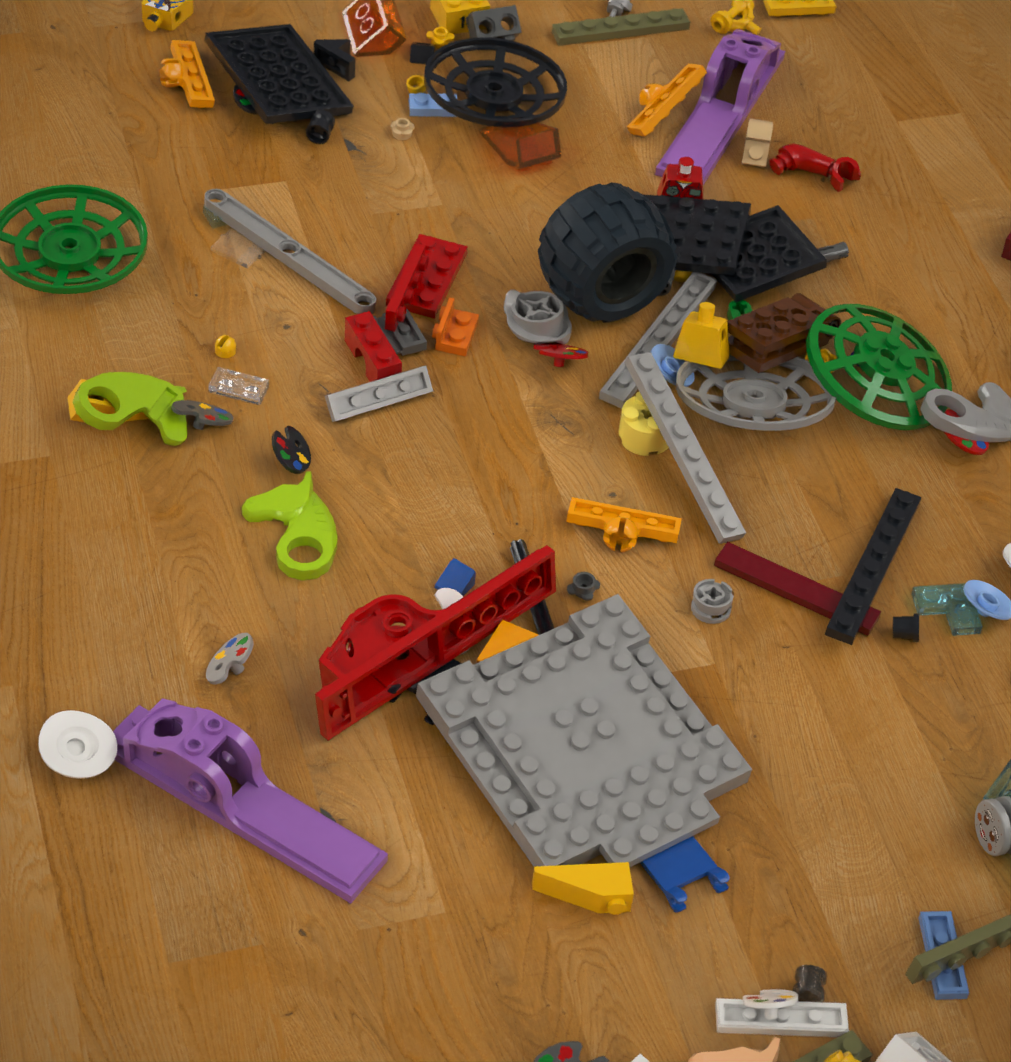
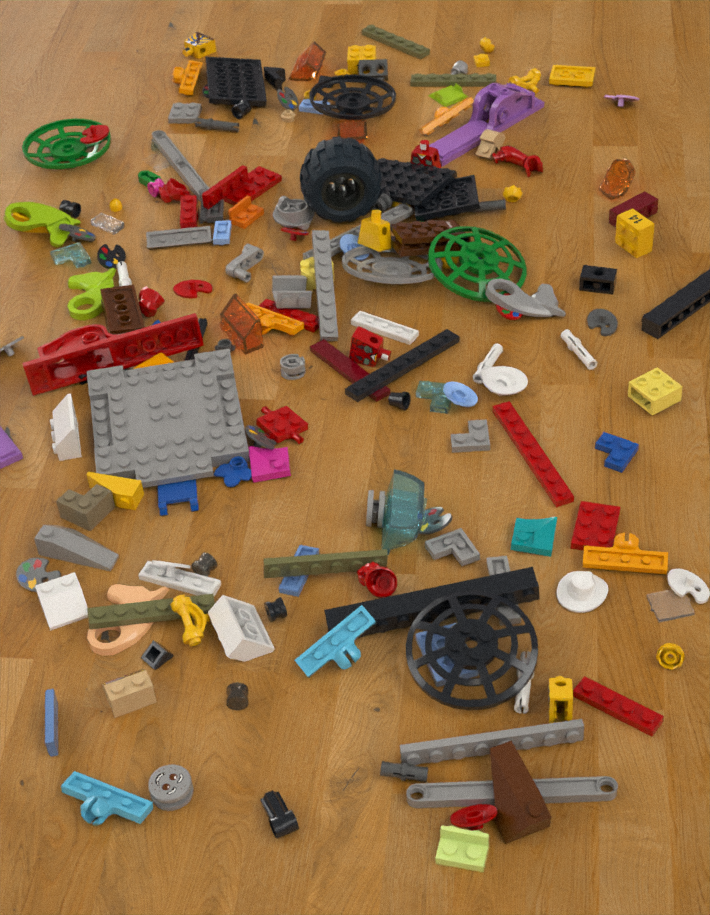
camera: 30 degrees right, 5 degrees down
(111, 208) = (94, 133): none -> red piece
(156, 367) = (72, 209): none -> black wheel
(216, 453) = (73, 252): none -> clear light blue plate
(224, 145) = (184, 113): none -> light grey plate
(251, 286) = (146, 177): none -> green beam
(278, 302) = (153, 187): none -> dark pink wheel
(297, 162) = (215, 124): none -> dark grey pin
(315, 306) = (173, 191): none -> red hair
(344, 494) = (124, 279): none -> white pin
(385, 97) = (286, 101): none -> dark grey piece
(390, 557) = (123, 299): none -> reddish brown hinge
(417, 526) = (149, 301): none -> red hair
(442, 371) = (222, 232): none -> light blue plate
(443, 795) = (65, 430): none -> white slope
(450, 488) = (190, 287): none -> red piece
(519, 407) = (238, 267): none -> light grey beam
(562, 935) = (87, 509): none -> dark tan brick
(581, 1004) = (73, 547): none -> light grey wedge
(597, 542) = (241, 325): none -> clear orange slope
(626, 471) = (290, 291): none -> light grey panel
(630, 56) = (449, 95): none -> lime piece
(679, 508) = (310, 321): none -> red plate
(742, 812) = (234, 471): none -> blue plate
(749, 740) = (260, 437): none -> dark grey piece
(760, 707) = (282, 424): none -> red plate
(786, 781) = (269, 463): none -> dark pink plate
(800, 501) = (385, 327): none -> white tile
(811, 547) = (367, 348): none -> red torso
(844, 229) = (512, 193): none -> yellow plate
(895, 33) = (621, 98): none -> lavender piece
(960, 1032) = (275, 609): none -> black wheel
(981, 181) = (618, 179): none -> clear orange hair
(990, 545) = (489, 361): none -> white pin

